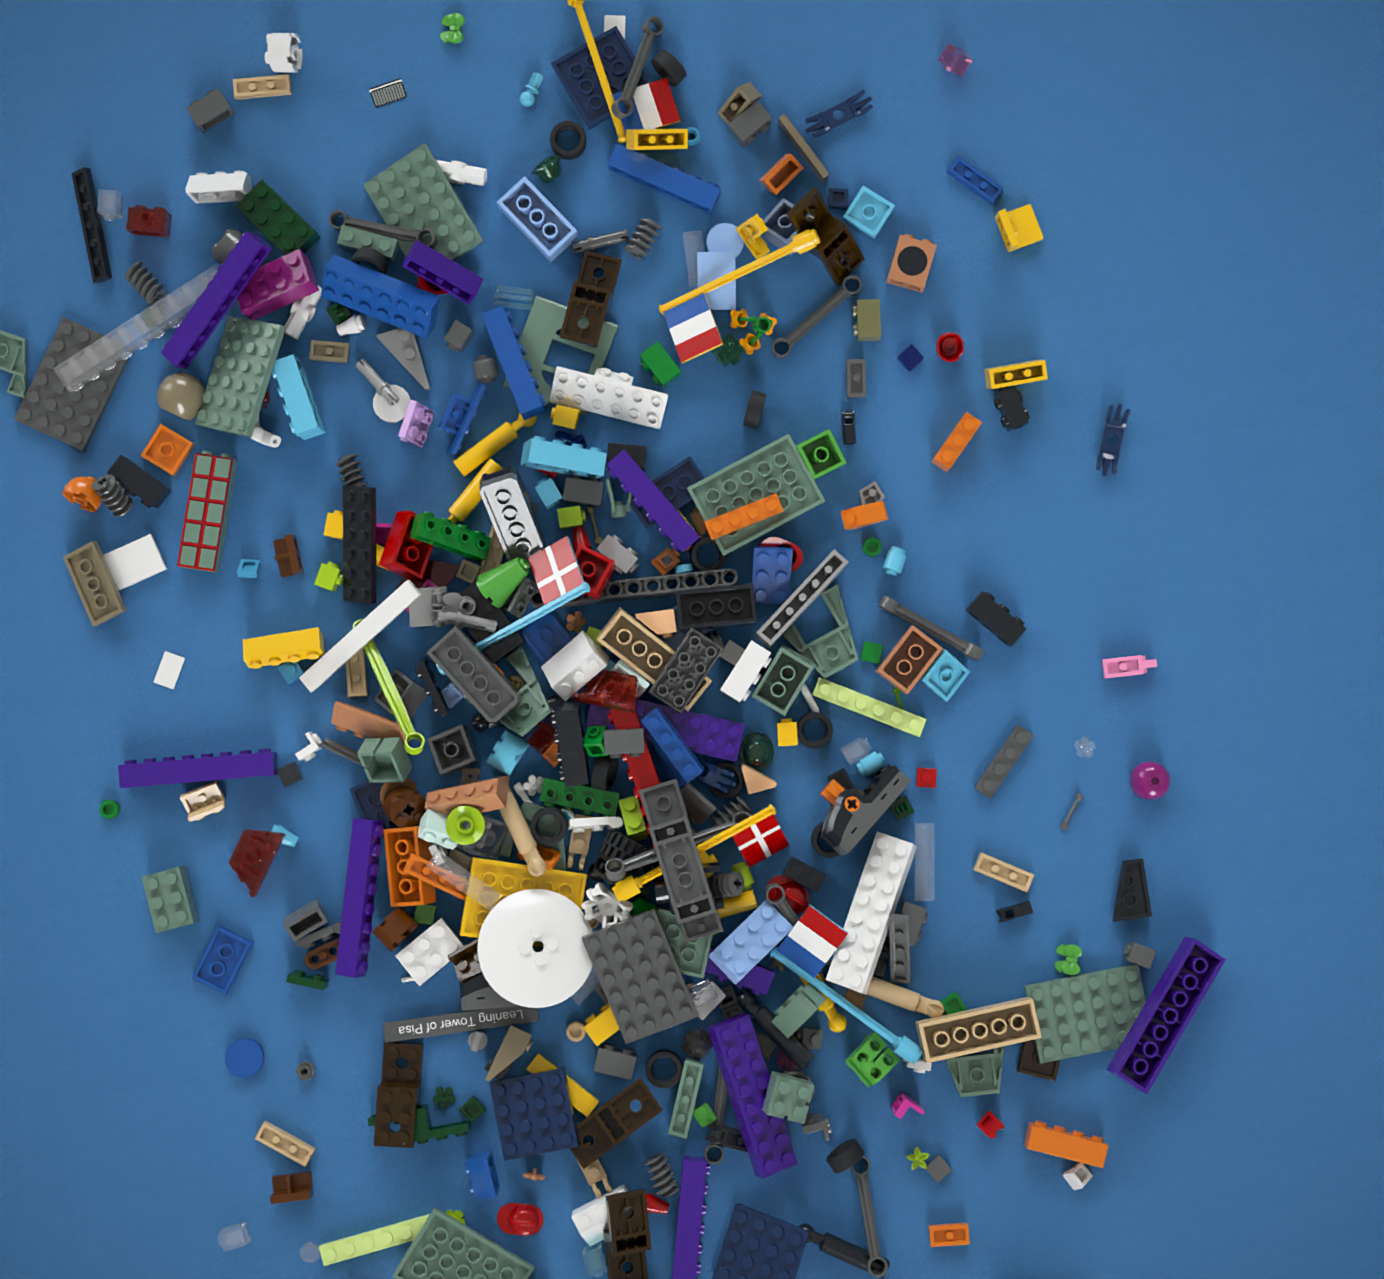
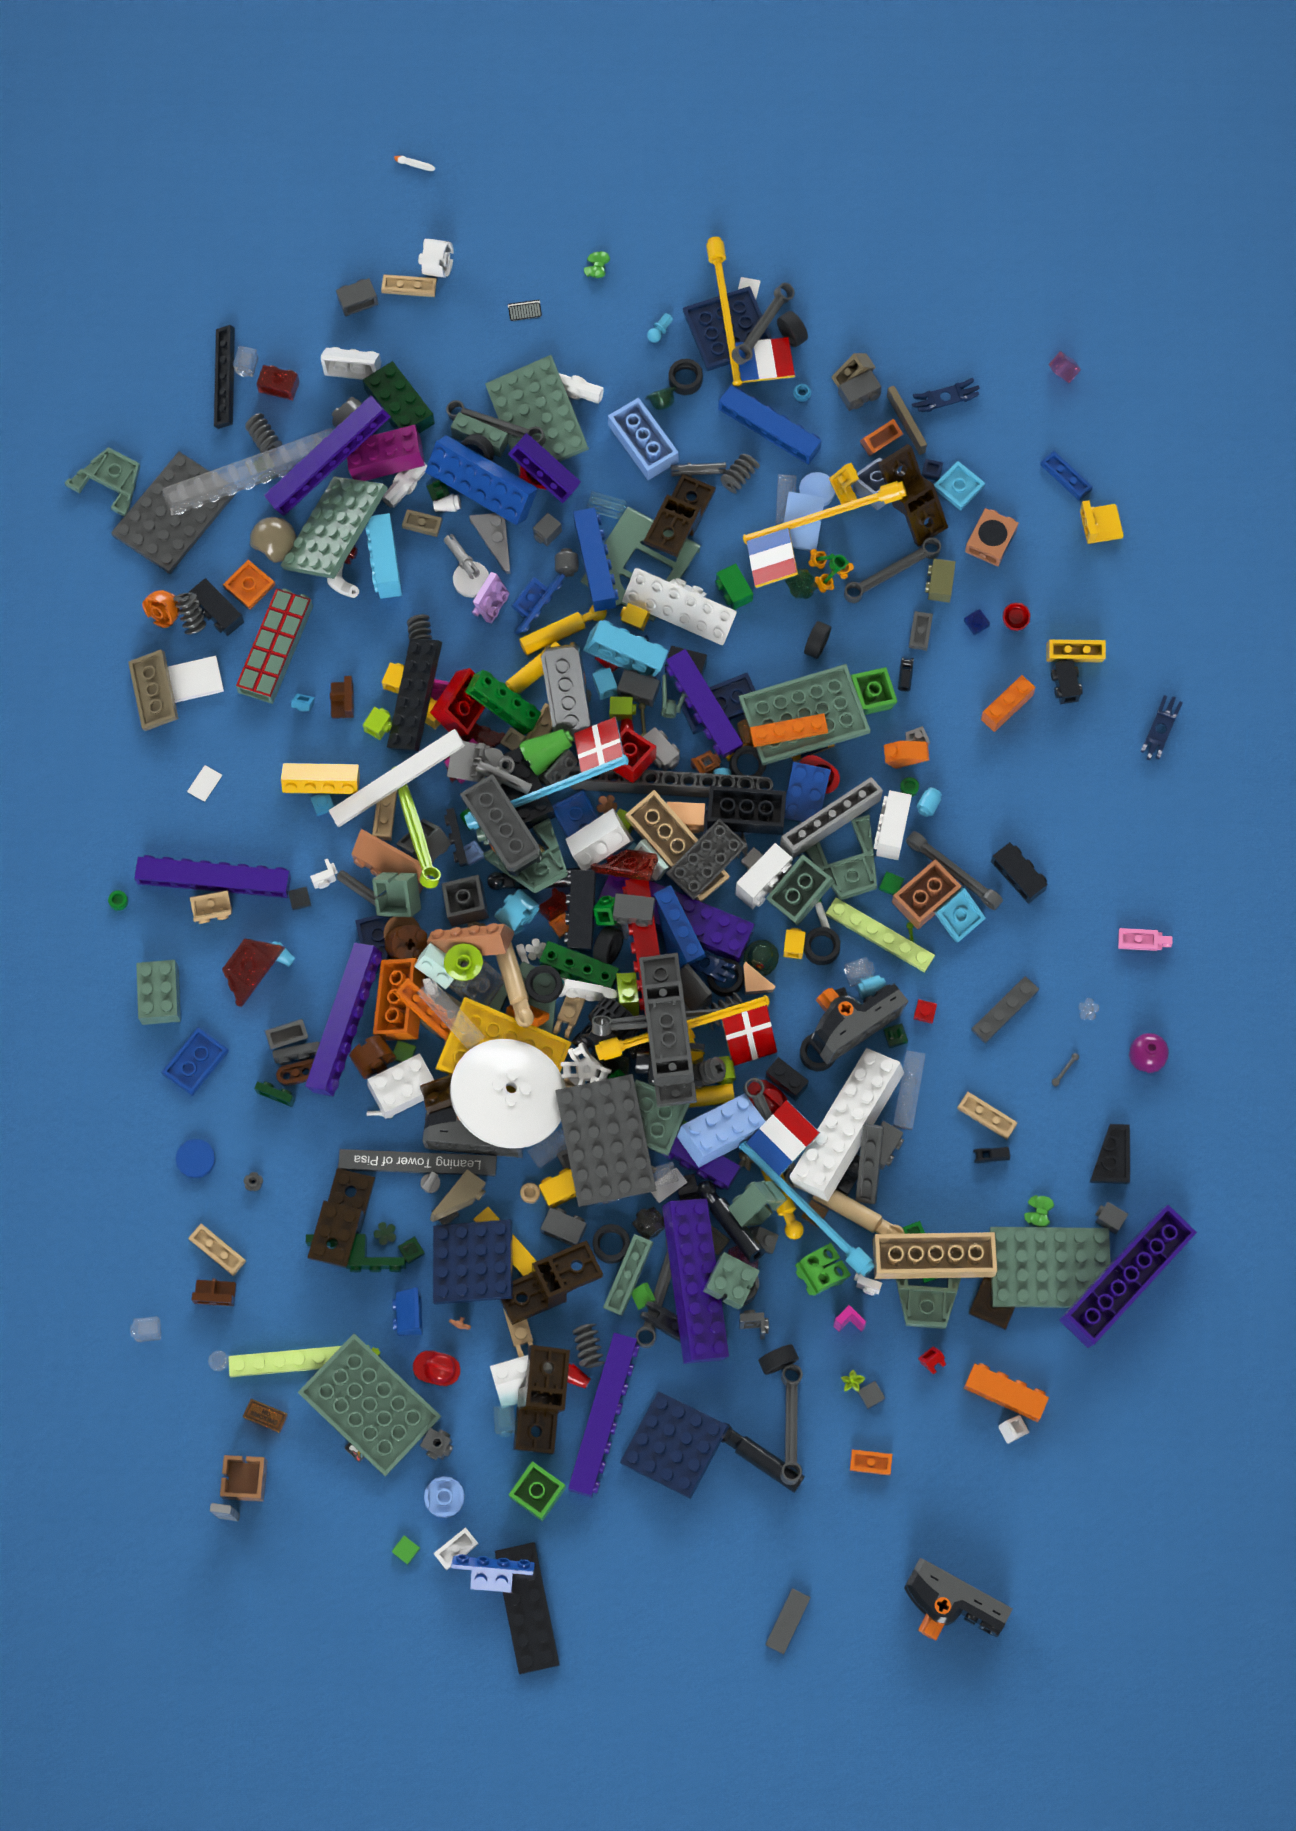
camera: 10 degrees right, 15 degrees down
(656, 139) = (769, 386): yellow brick -> none
(863, 594) = (892, 825): none -> white brick

